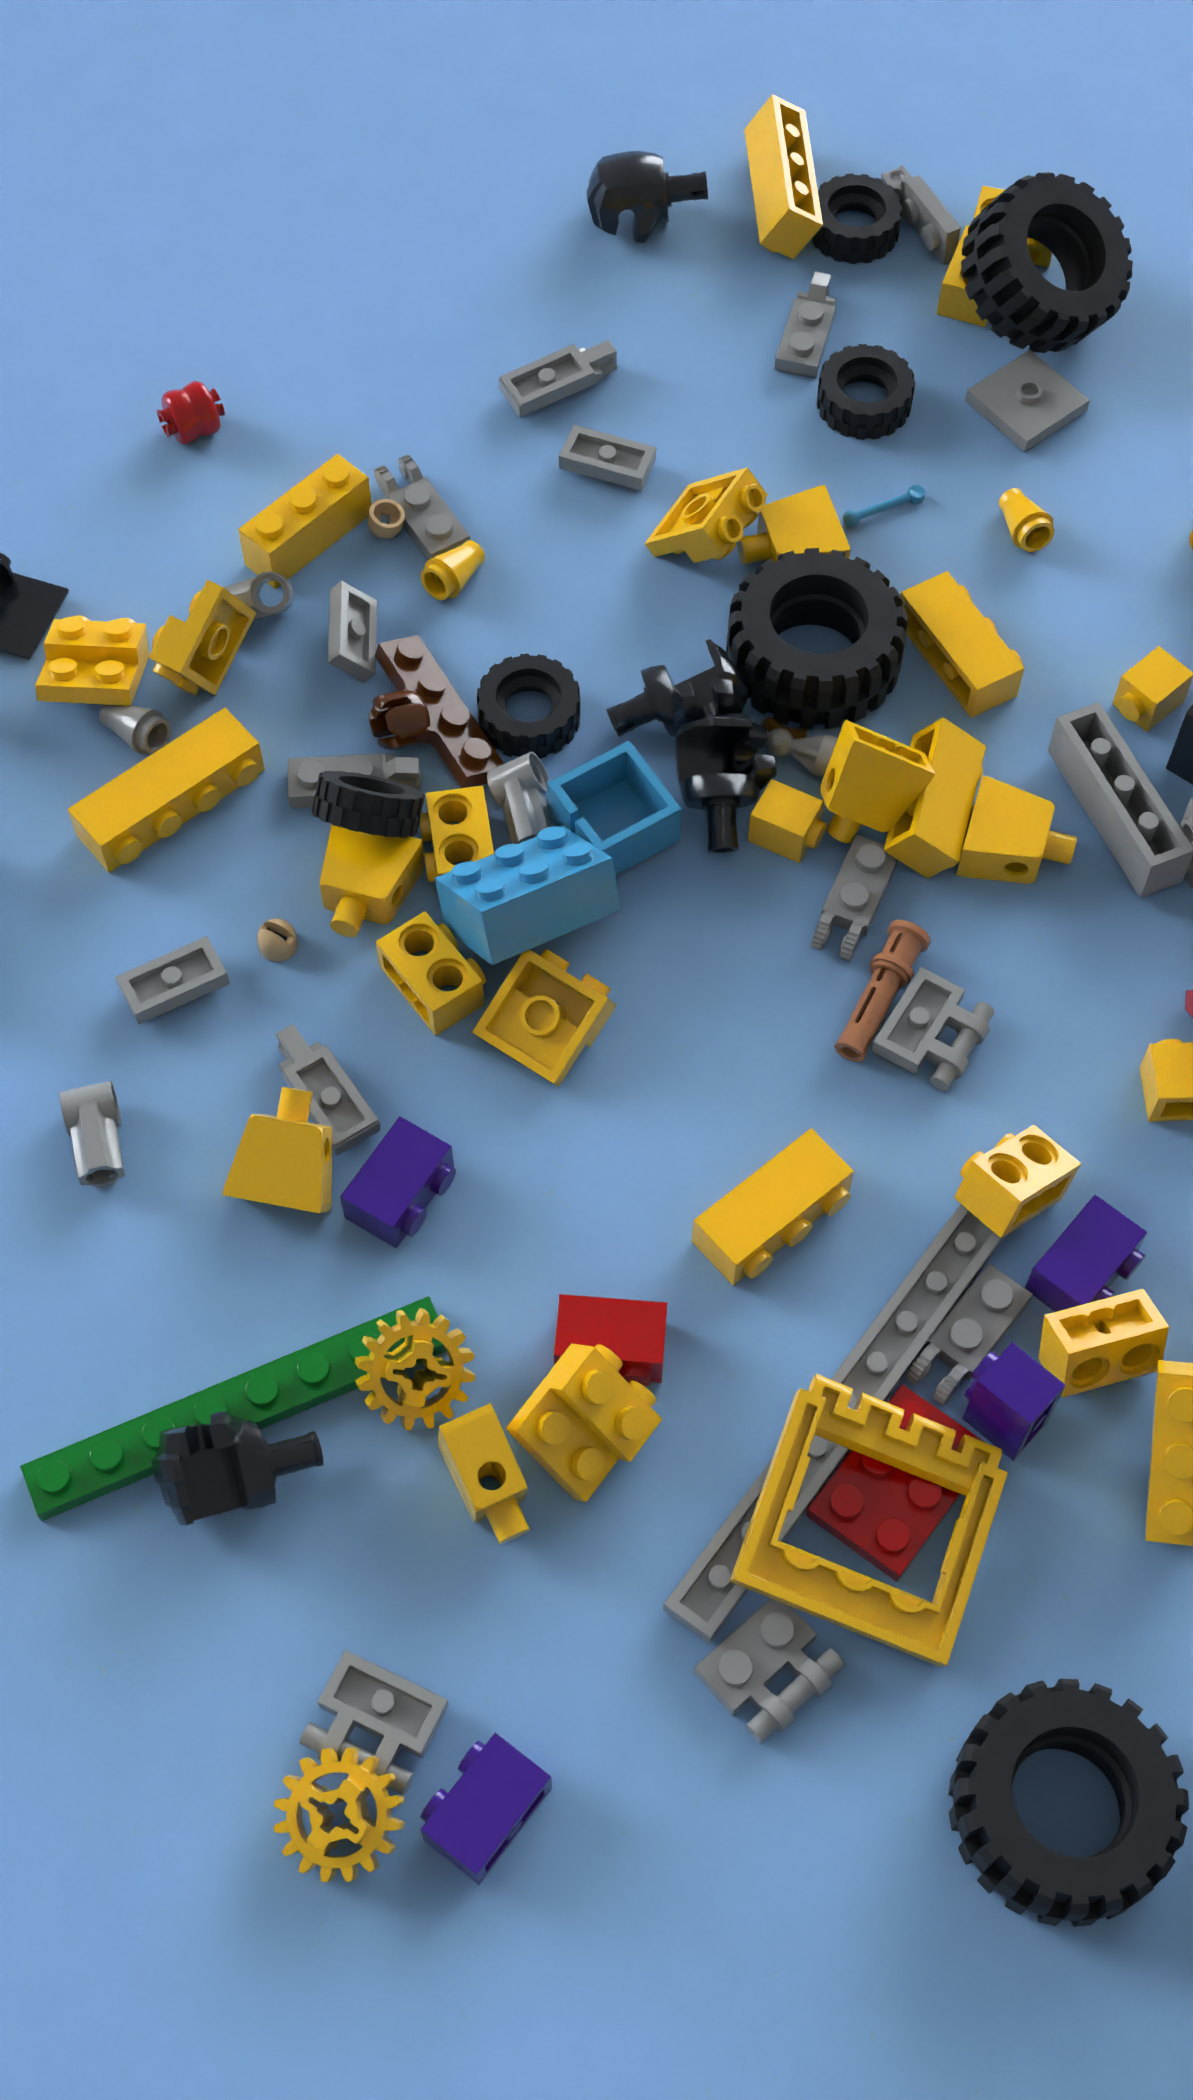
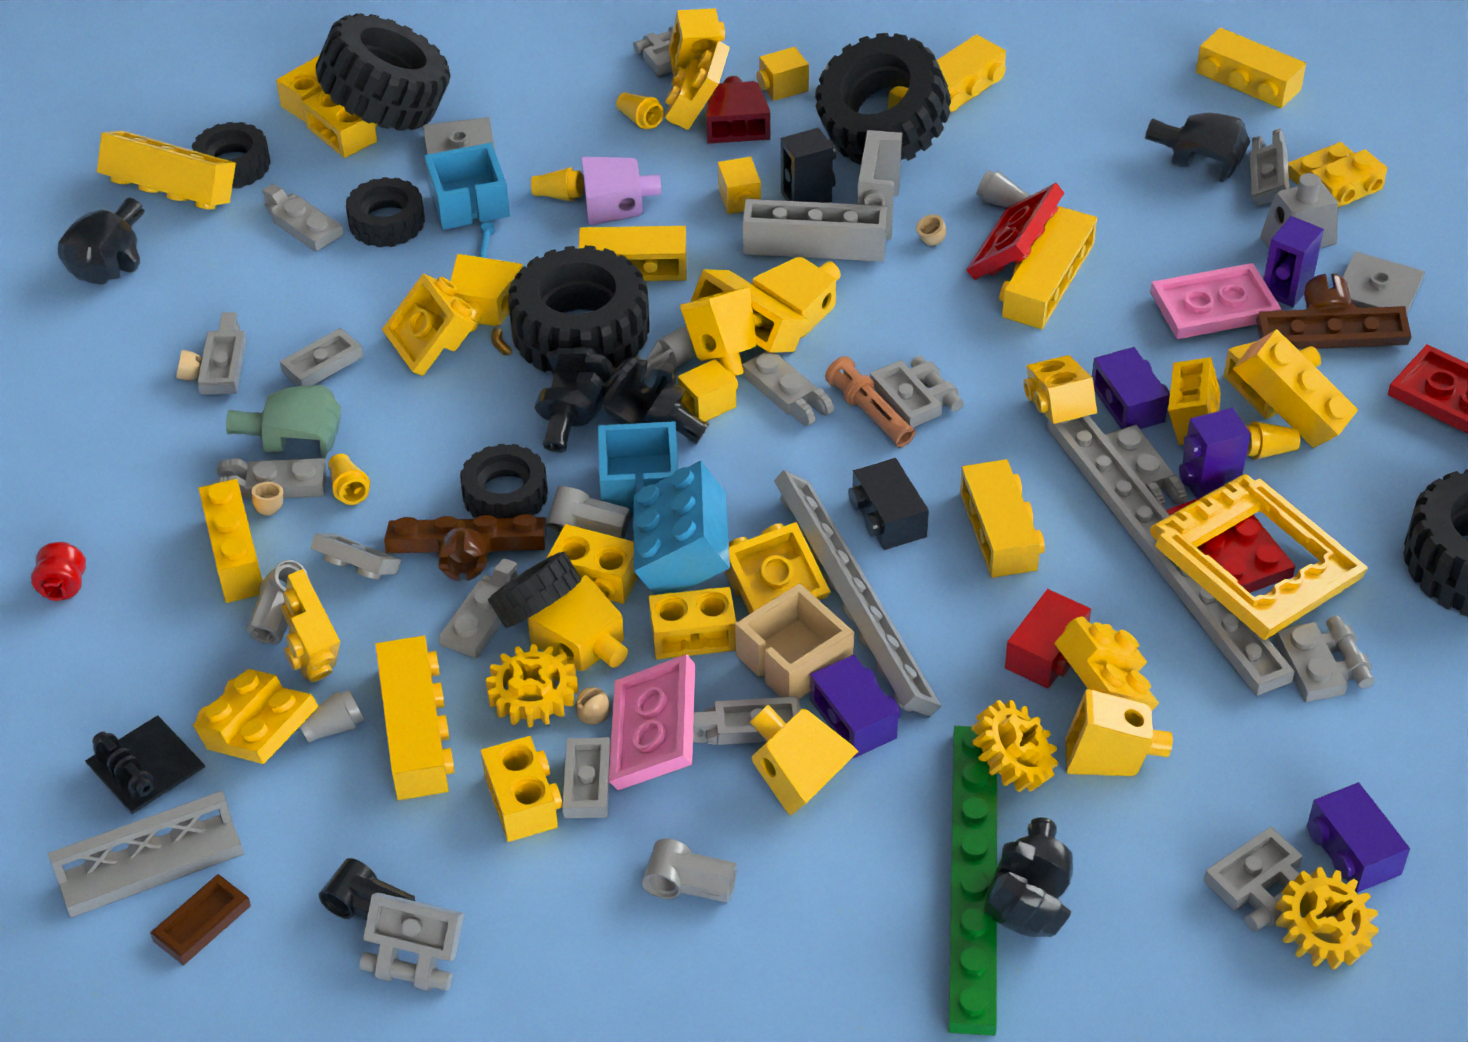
camera: 60 degrees left, 15 degrees down
(117, 920) = (520, 788): none -> yellow brick
(263, 1001) = (652, 722): none -> bright pink plate
(264, 872) = (532, 685): none -> yellow gear
(448, 1079) = (792, 640): none -> tan piece
(491, 481) = (291, 413): none -> sand green piece
(524, 353) = (189, 366): none -> tan hinge
(565, 1110) = (859, 599): none -> light grey plate
(723, 1081) = (889, 504): none -> black brick
(925, 213) = (274, 119): light grey hinge -> none
(945, 437) = (467, 185): none -> dark azure piece
(1054, 573) = (615, 188): none -> lavender torso
(1107, 1461) = (1271, 440): none -> yellow cone

